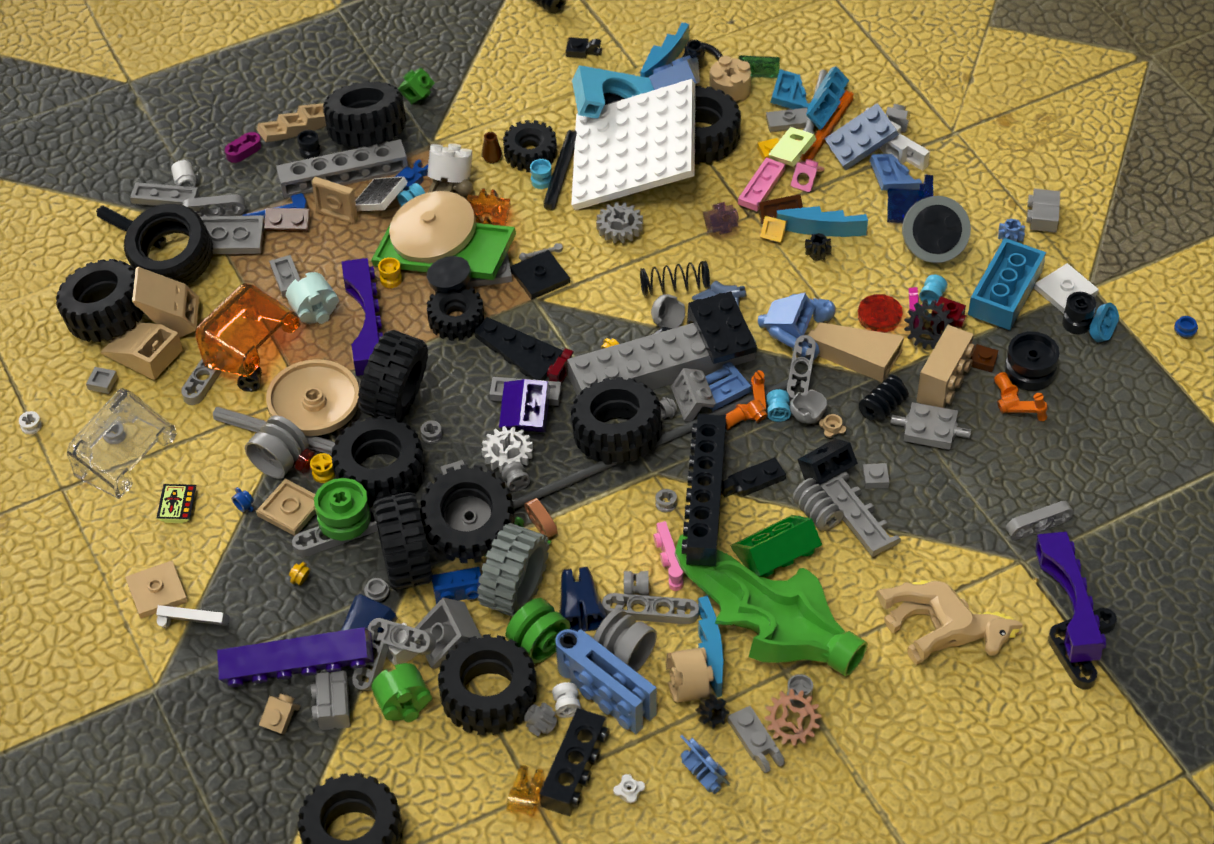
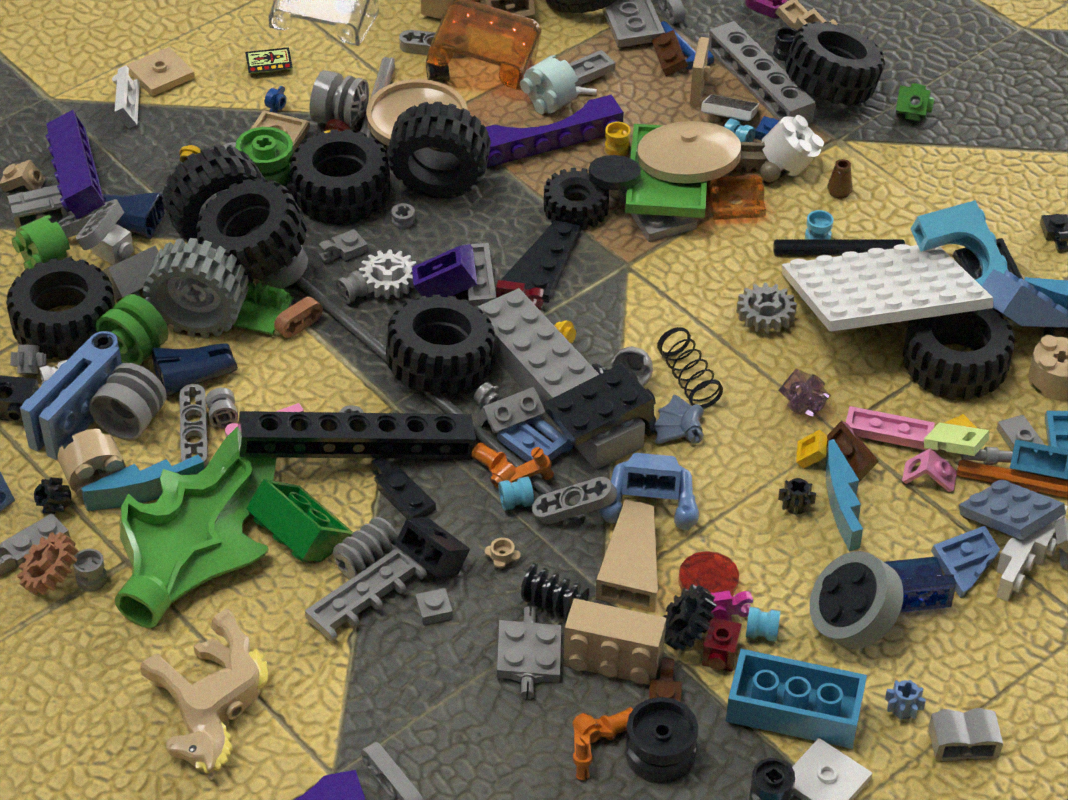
camera: 75 degrees right, 5 degrees down
(529, 135) = (866, 199): black tyre -> none
(540, 274) = (663, 259): black plate -> none
(557, 248) = (713, 267): light grey hinge -> none
(808, 407) = (517, 519): light grey hair -> none

